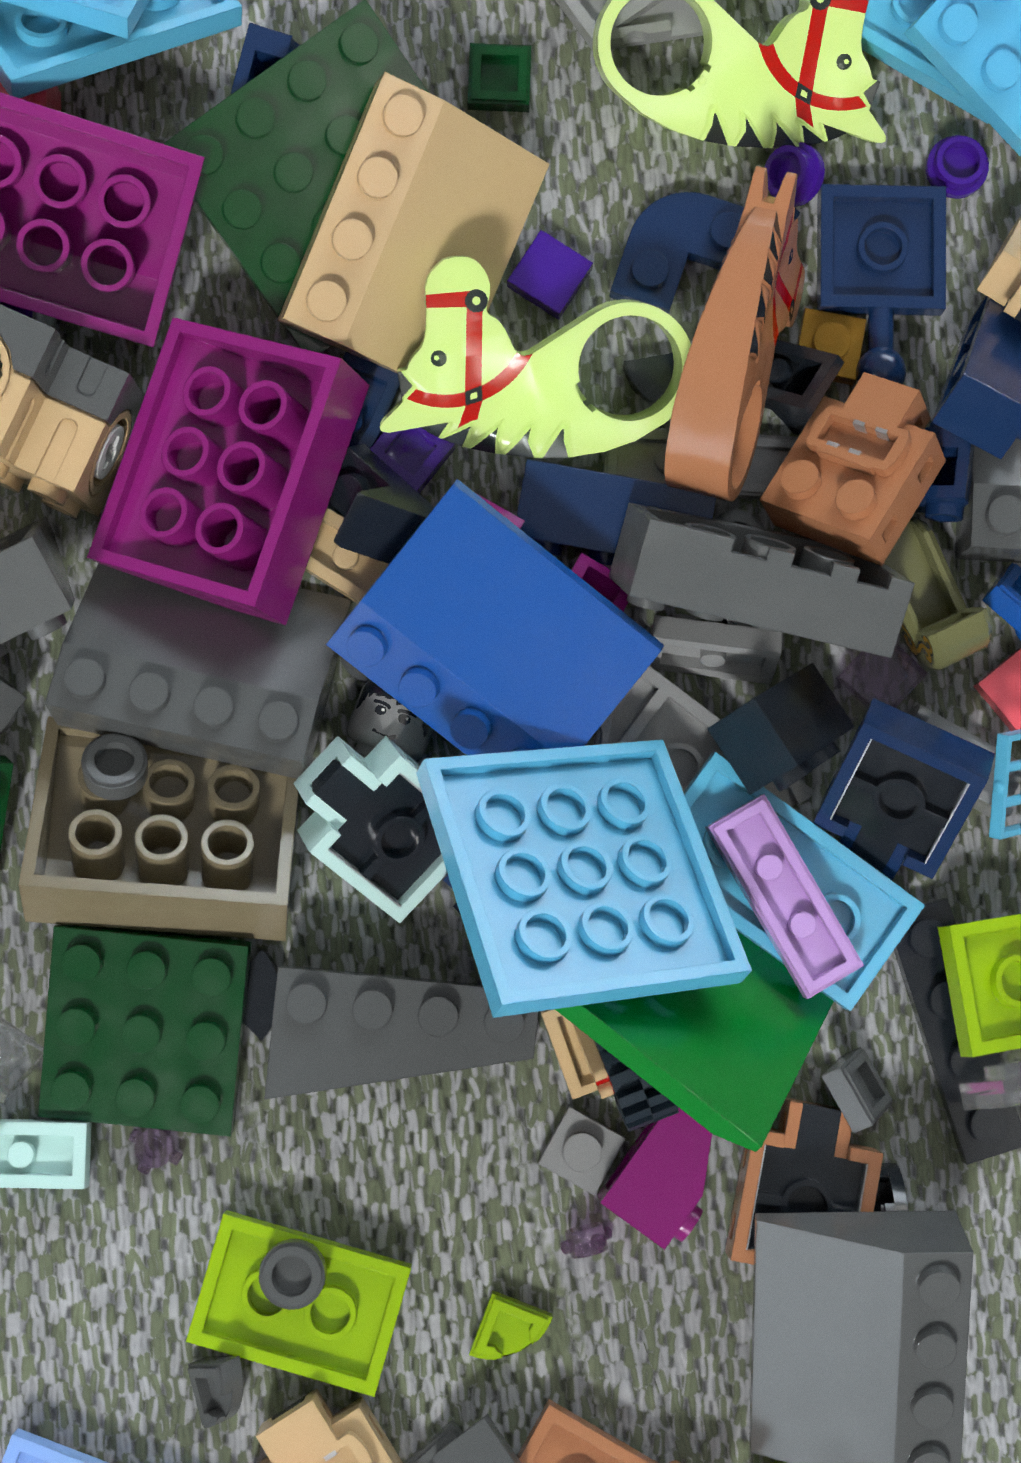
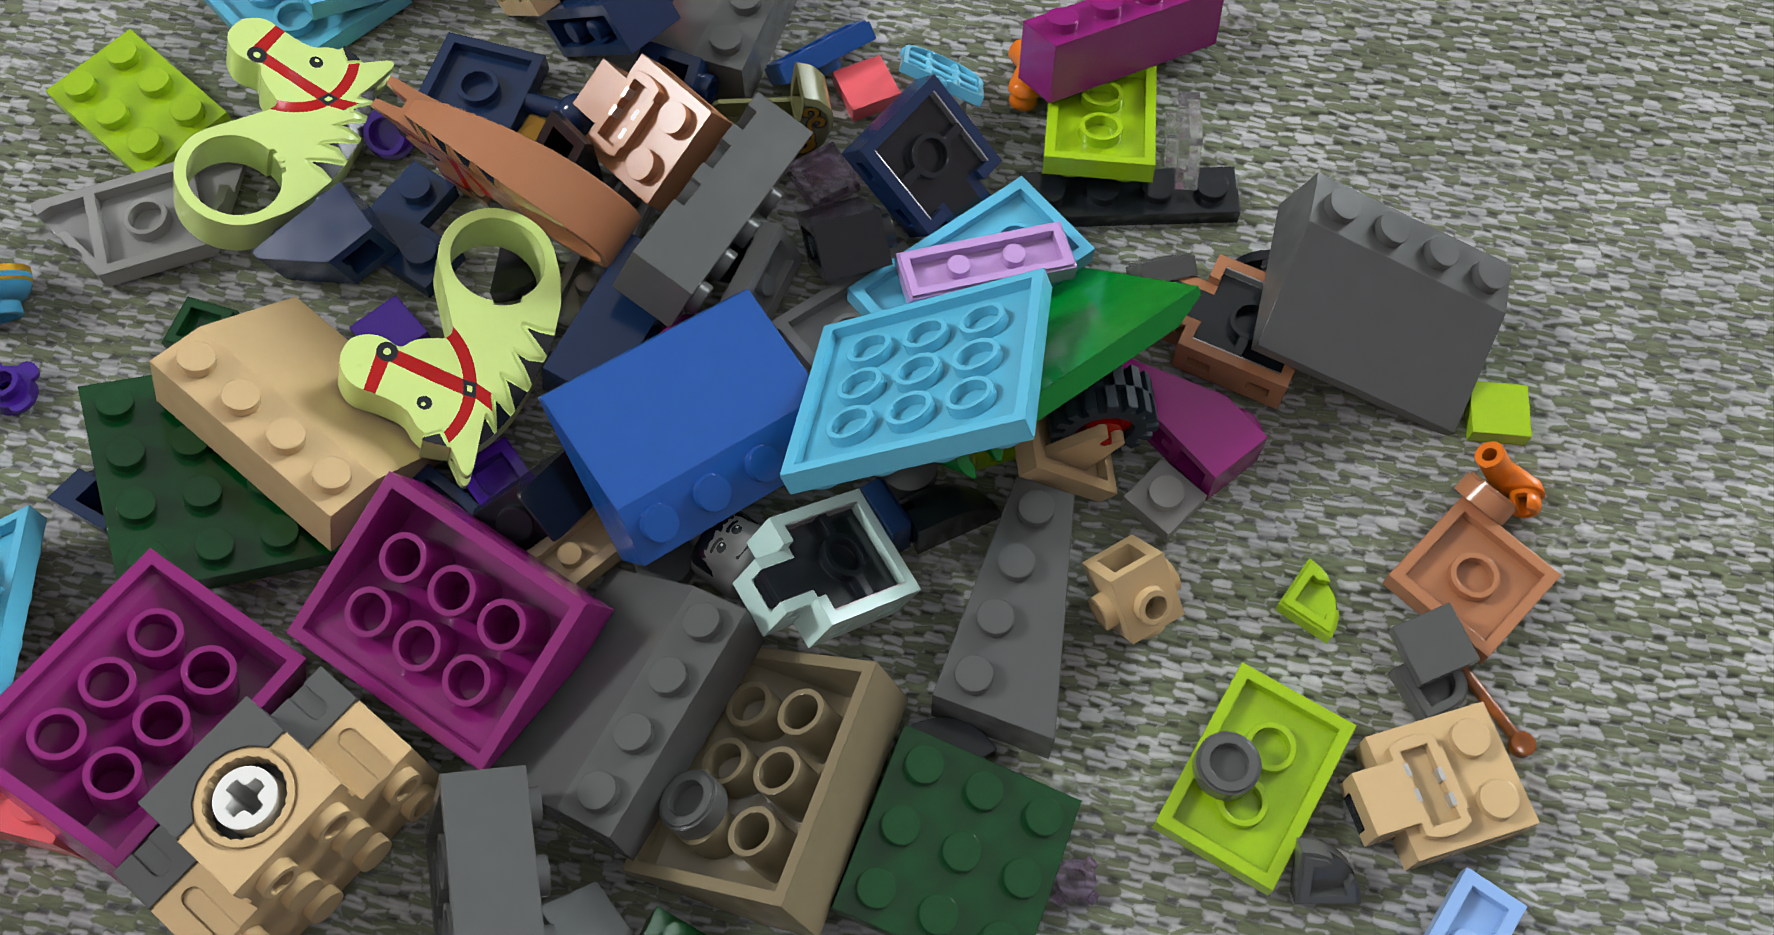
camera: 70 degrees left, 20 degrees down
(456, 1141) = (1133, 589): none -> tan brick
(586, 1240) = (1245, 513): clear purple piece -> none
(630, 173) = (329, 241): none -> dark blue slope
(957, 164) = (432, 23): dark purple plate -> none

